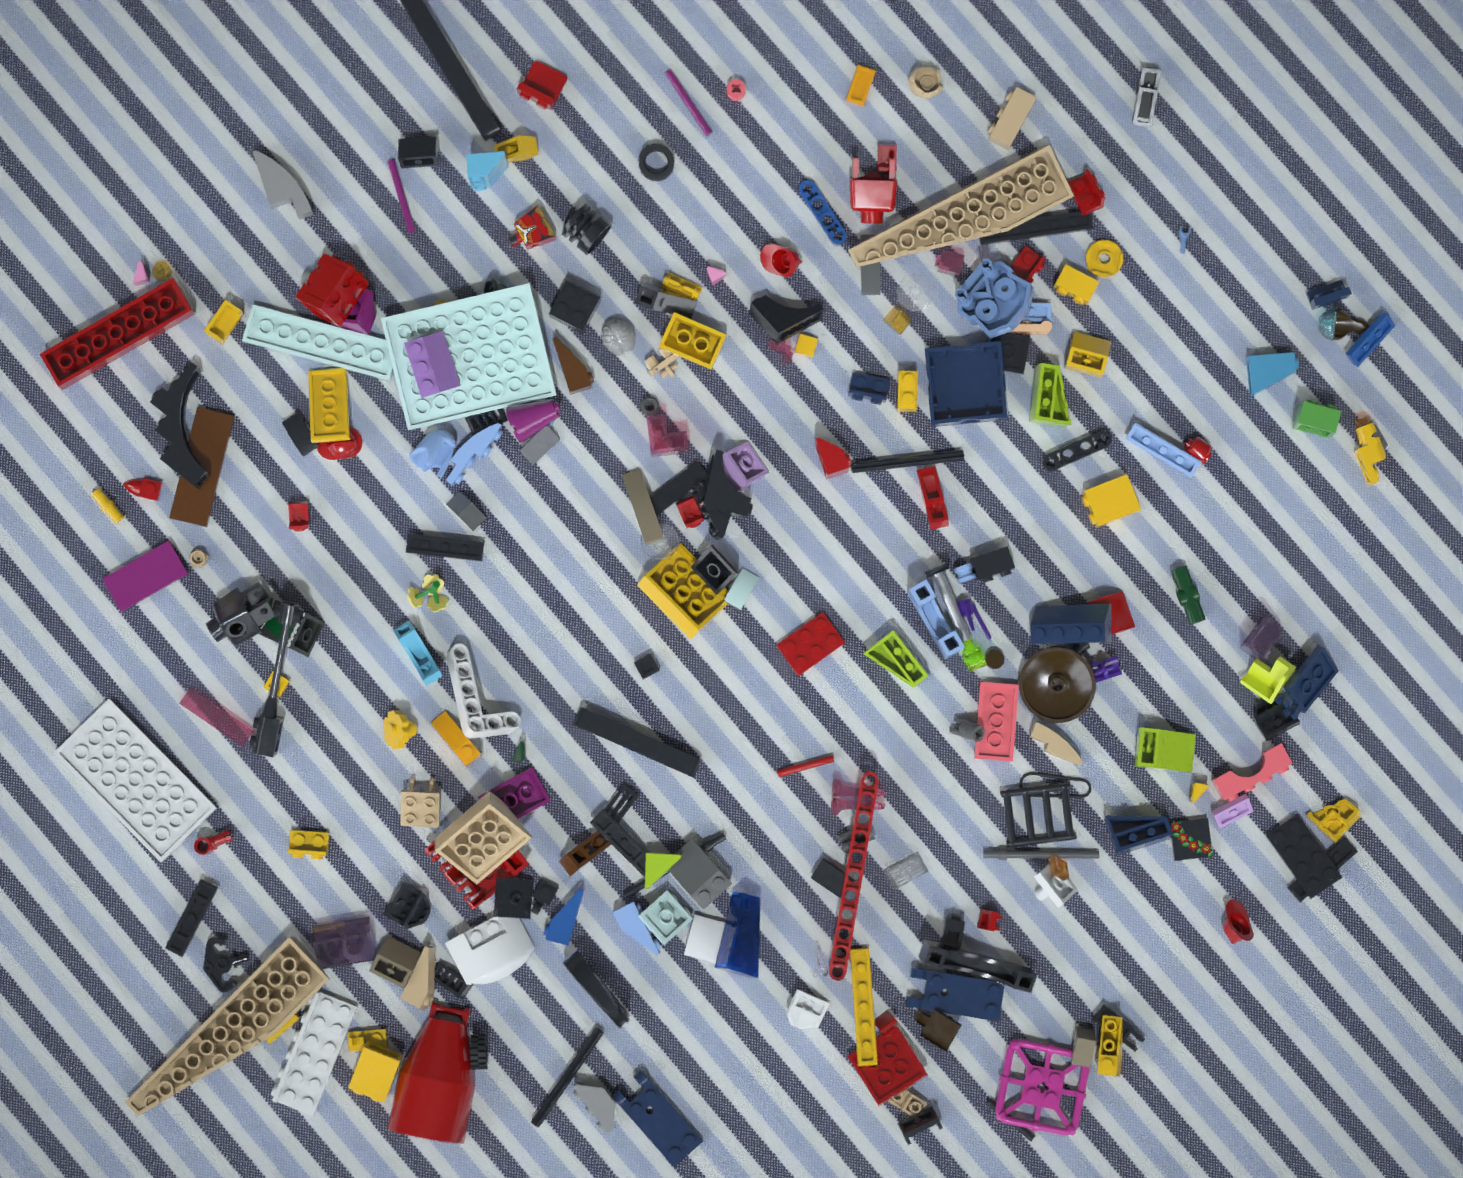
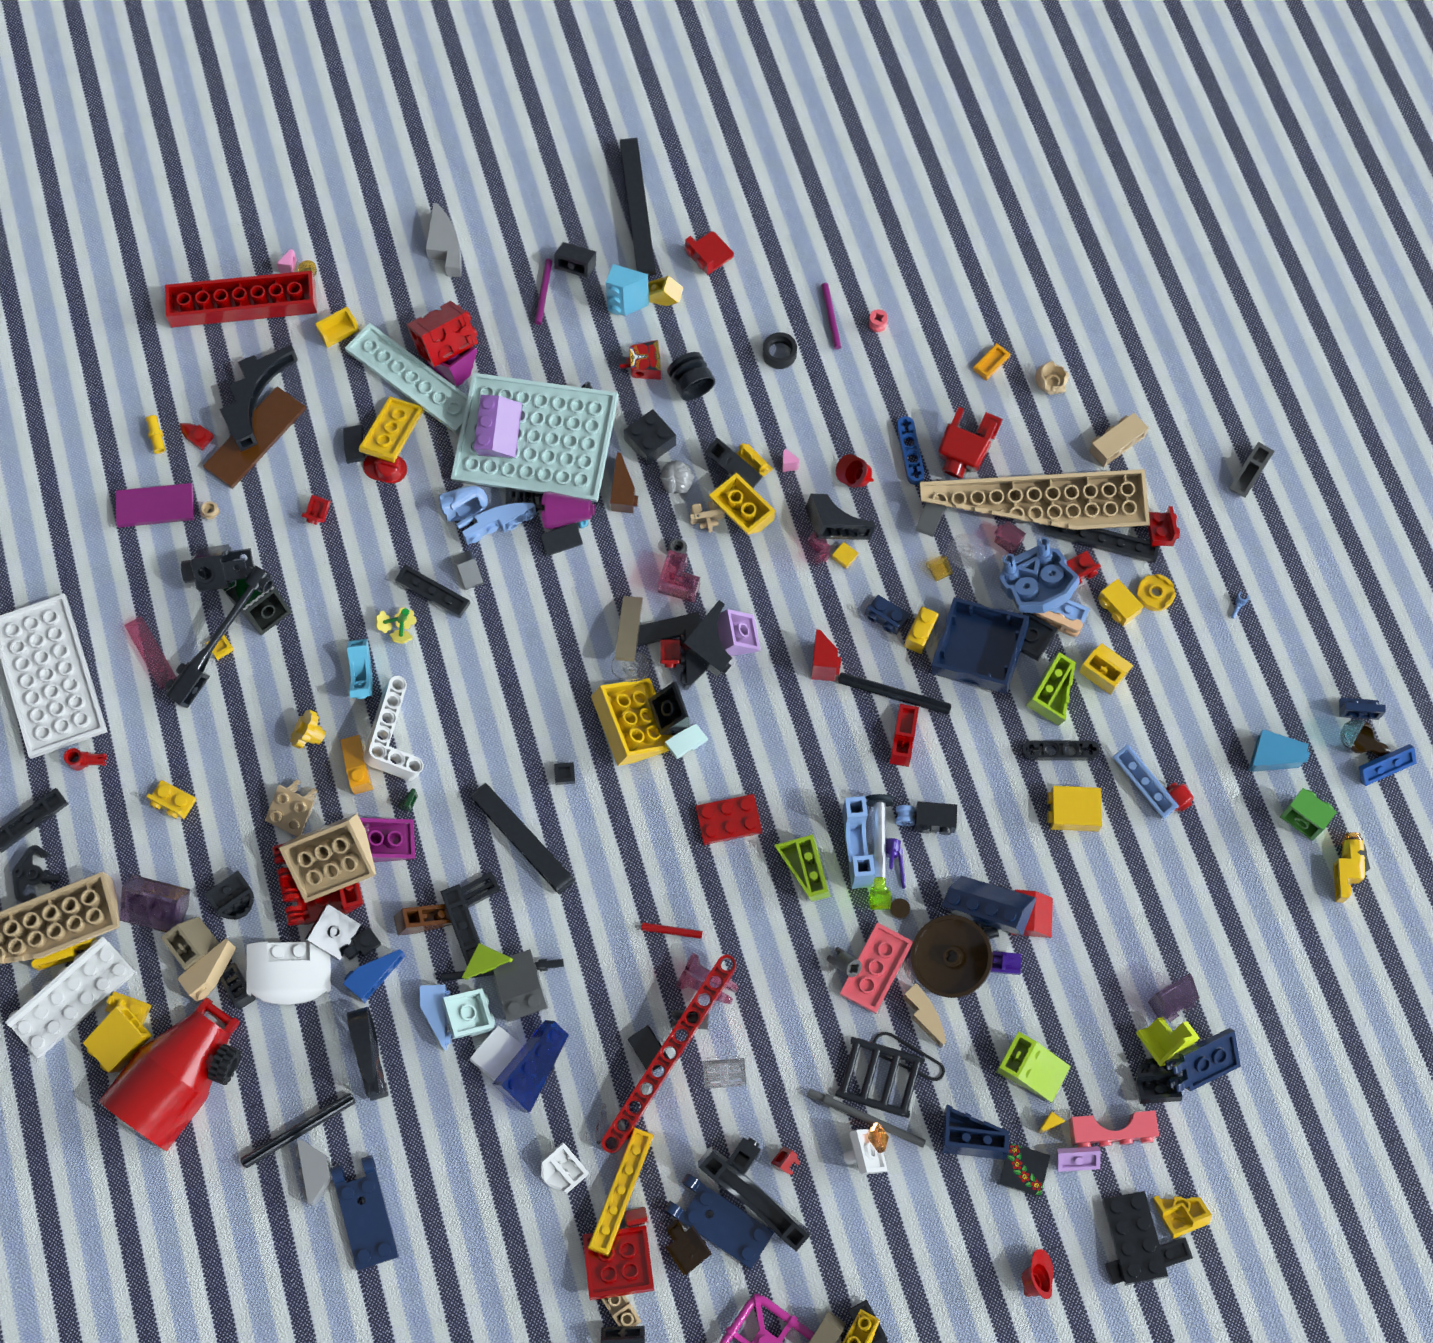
camera: 25 degrees right, 15 degrees down
(1188, 595) = (1116, 928): dark green piece -> none

